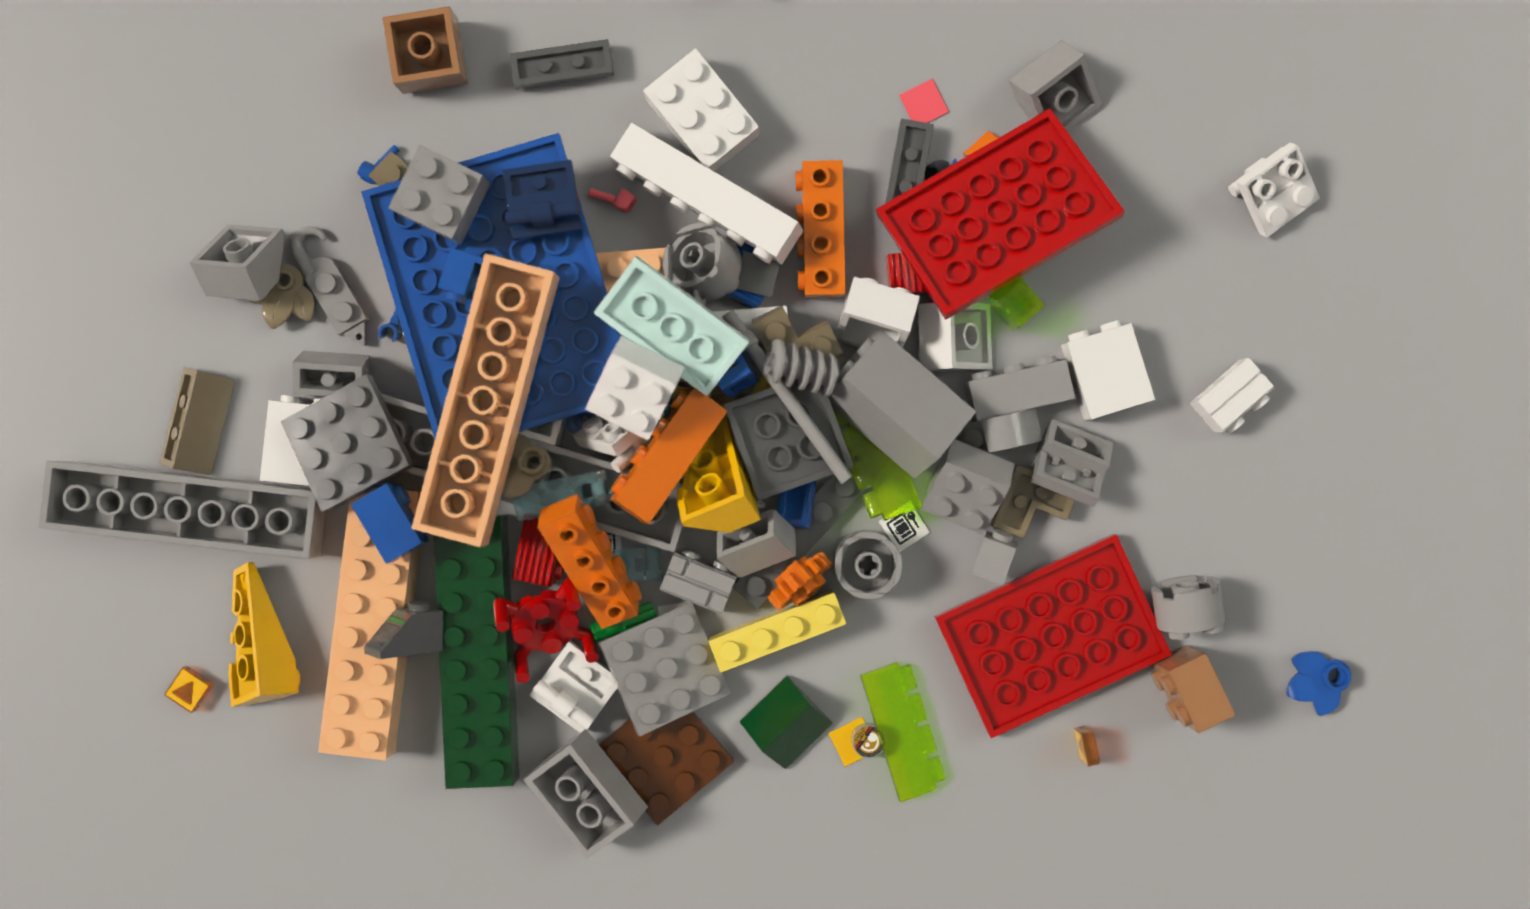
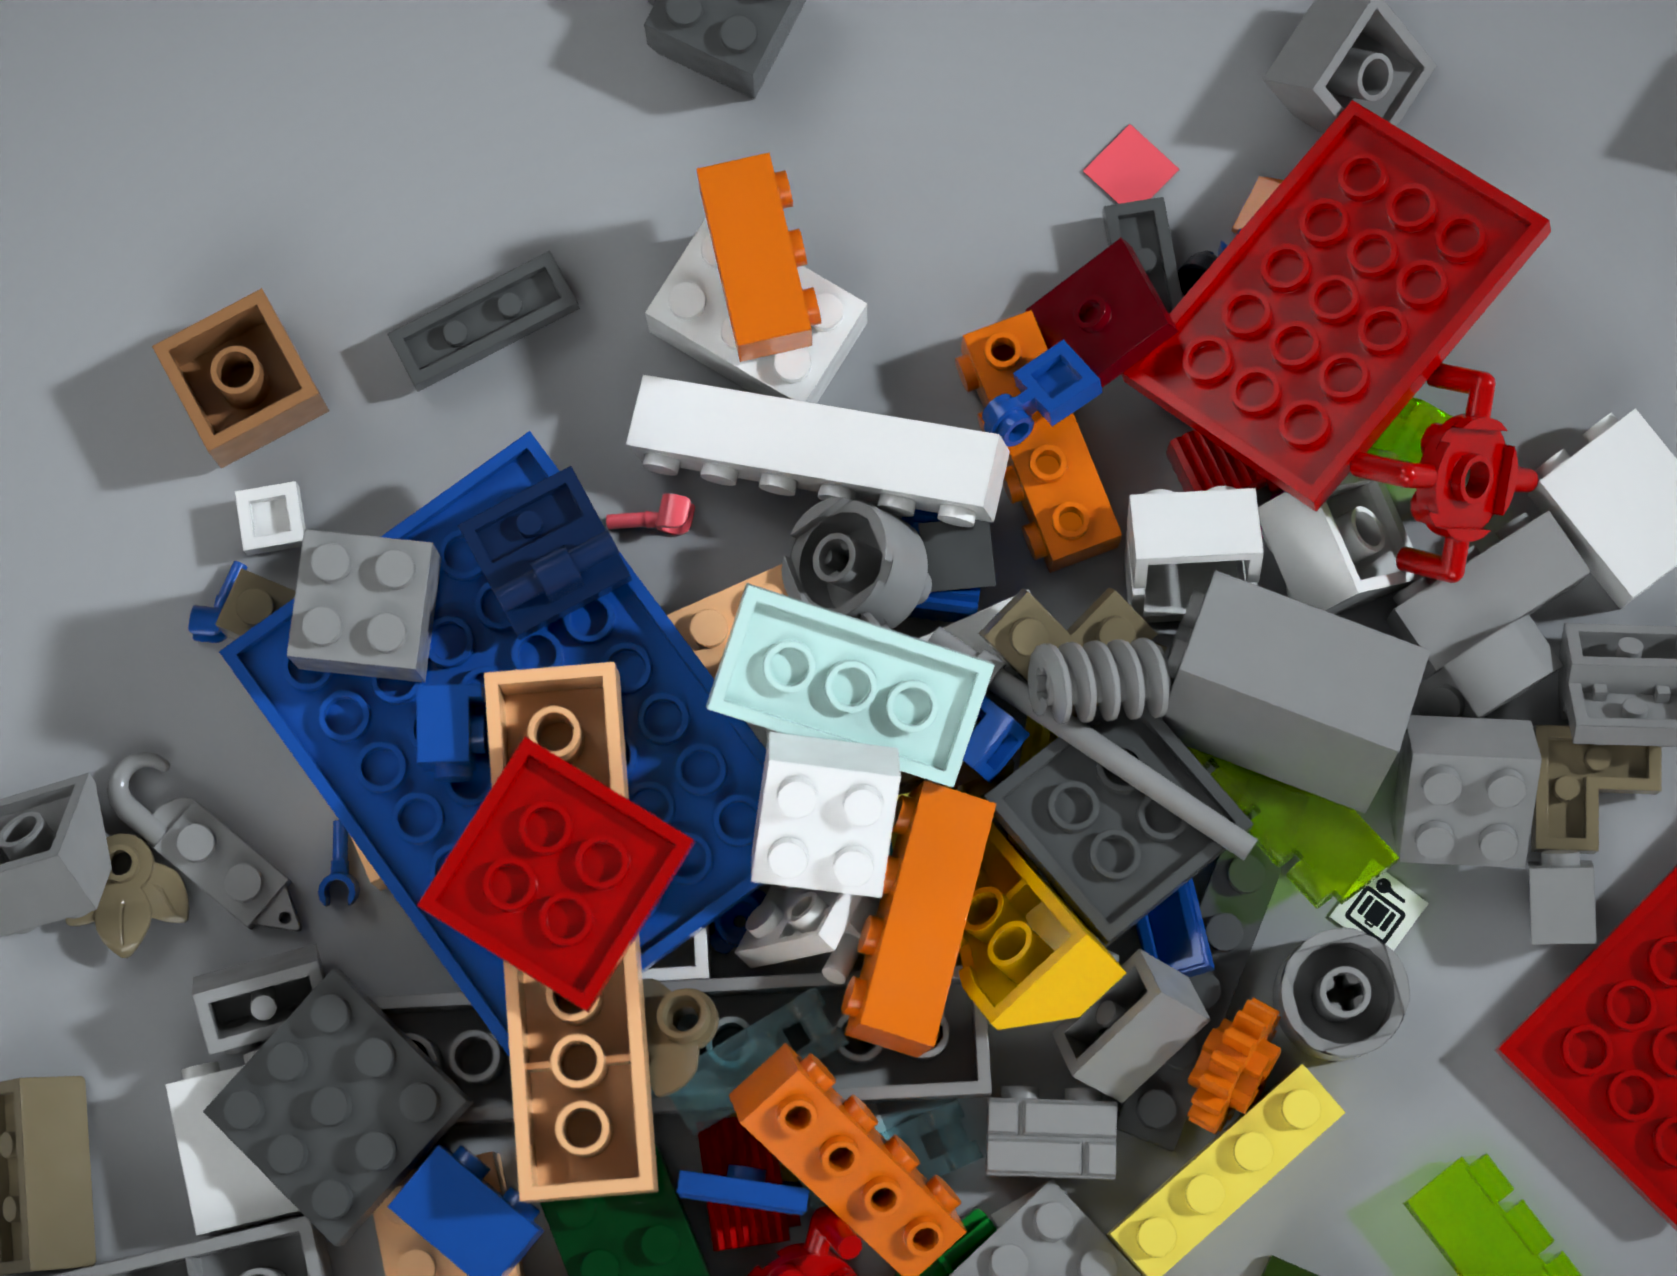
camera: 15 degrees left, 10 degrees down
(418, 129) = (270, 518): none -> white plate
(483, 372) = (556, 874): none -> red plate
(533, 555) = (743, 1188): none -> blue plate
(708, 81) = (758, 256): none -> orange brick
(837, 204) = (1052, 384): none -> blue plate
(876, 178) = (1106, 313): none -> dark red plate
(1013, 331) = (1447, 454): none -> red plate

